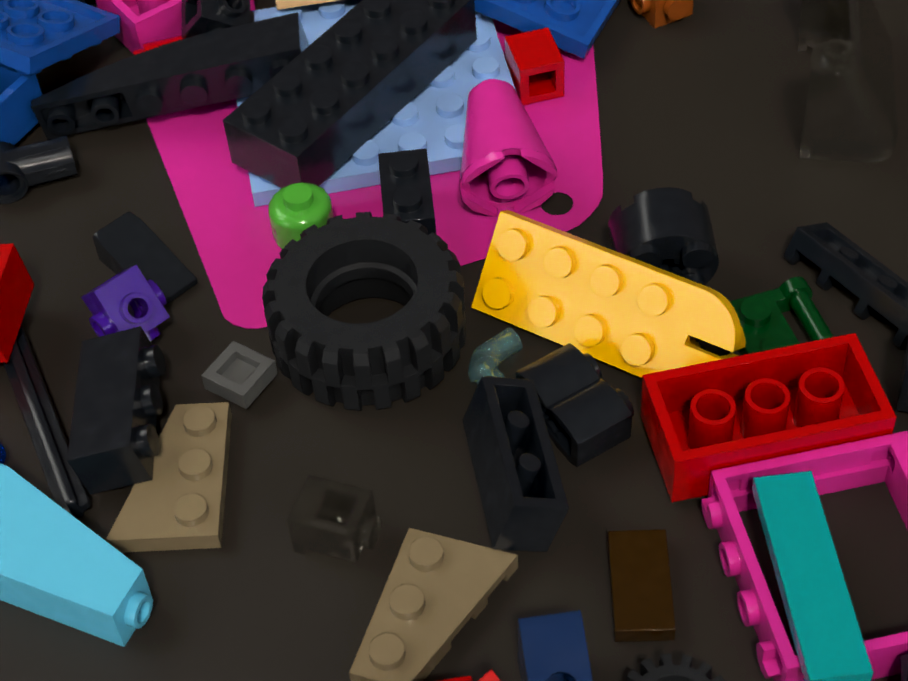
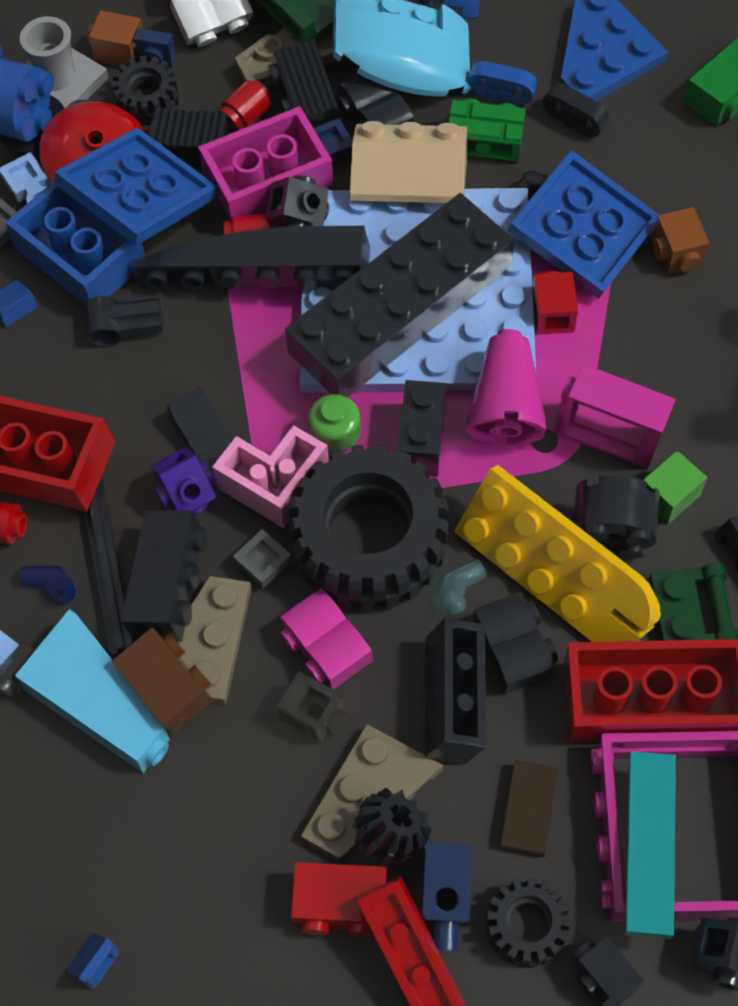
camera: 10 degrees right, 15 degrees up
(136, 515) = (164, 680): none -> reddish brown brick
(224, 285) = (268, 481): none -> bright pink brick
(336, 440) = (325, 639): none -> dark pink brick
(467, 627) = (391, 828): none -> black gear
(632, 116) = (613, 415): none -> dark pink window
(731, 210) = (678, 485): none -> bright green panel

